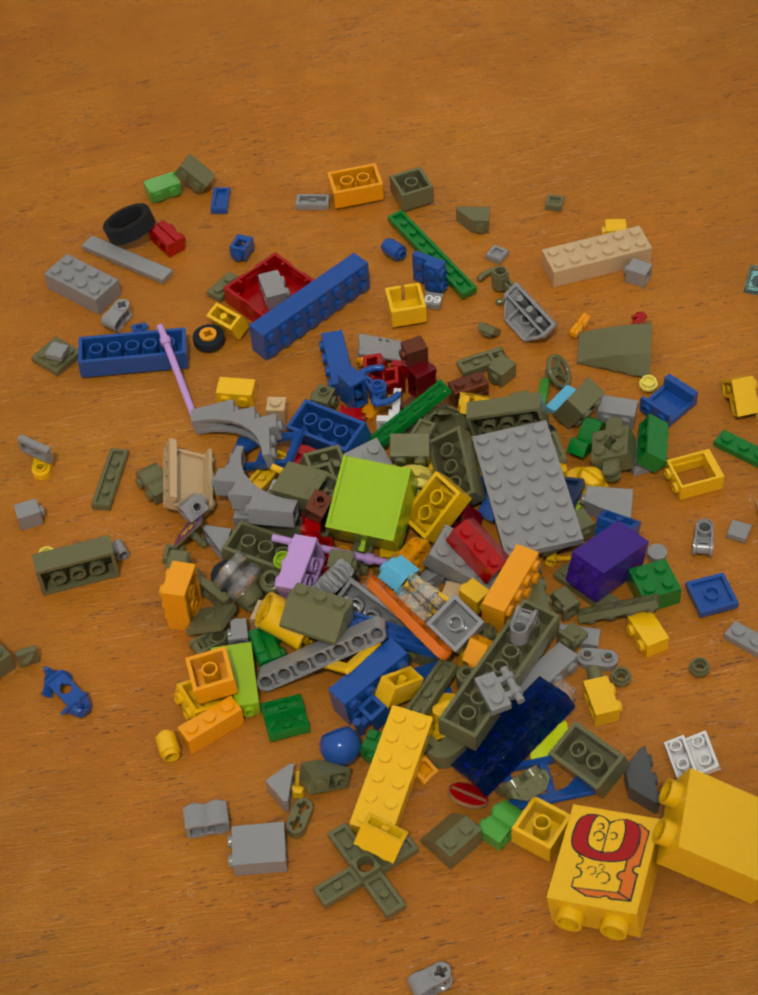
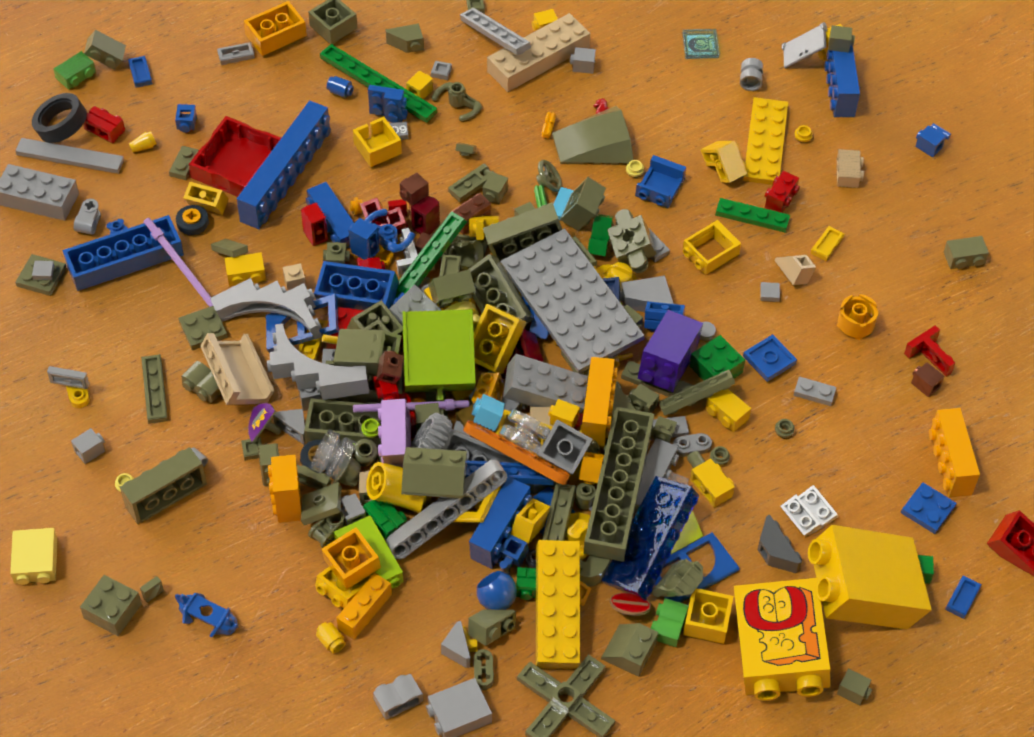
camera: 25 degrees left, 5 degrees up
(177, 429) = (199, 324): none -> olive plate
(192, 507) = (256, 397): light grey brick -> none
(195, 261) = (143, 142): none -> yellow cone
(229, 369) = (229, 248): none -> olive tile
(273, 288) = (238, 155): light grey brick -> none
(285, 717) = (429, 578): green slope -> none
(314, 365) = (314, 224): none -> red brick
(372, 345) = (366, 190): light grey door -> none
(381, 838) = (573, 666): yellow brick -> none
(469, 263) = (420, 84): none -> yellow brick
(478, 549) = (556, 371): red slope -> none
(493, 693) = (626, 504): light grey plate -> none
(522, 625) = (626, 433): light grey piece -> none
(526, 315) = (497, 127): light grey wedge -> none
(559, 228) = (495, 31): none -> light grey plate
(589, 759) = (727, 540): olive brick -> none
(618, 407) = (619, 199): light grey brick -> none
(652, 443) = (664, 226): green brick -> none
(667, 945) = (855, 687): none -> olive brick
(702, 540) = (743, 308): light grey piece -> none

